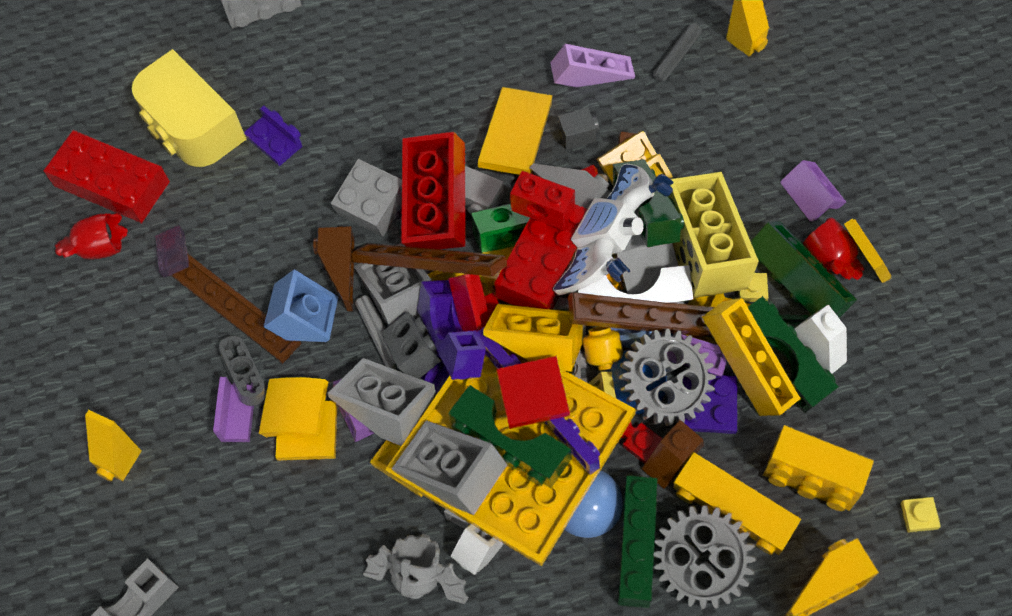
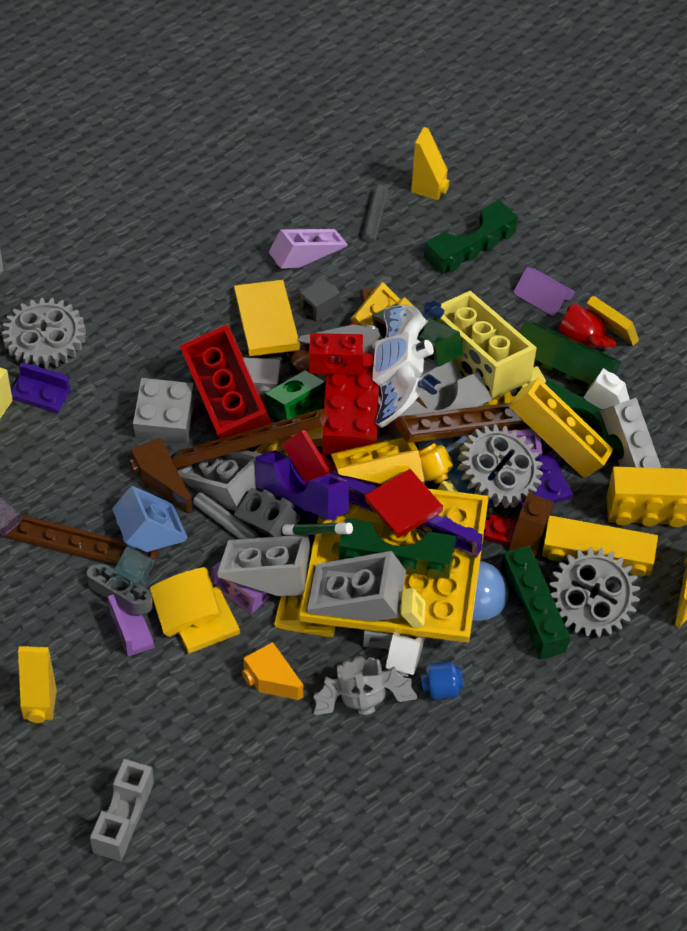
camera: 30 degrees left, 10 degrees down
(263, 352) = (135, 565): none -> clear light blue brick
(297, 75) = (44, 333): none -> light grey gear
(338, 515) = (272, 673): none -> light orange slope
(440, 385) = (317, 529): none -> dark green bar
(493, 510) = (413, 607): none -> light yellow plate
(502, 592) = (442, 680): none -> blue head
(732, 116) = (449, 251): none -> dark green arch
(824, 379) = (629, 425): none -> light grey arch

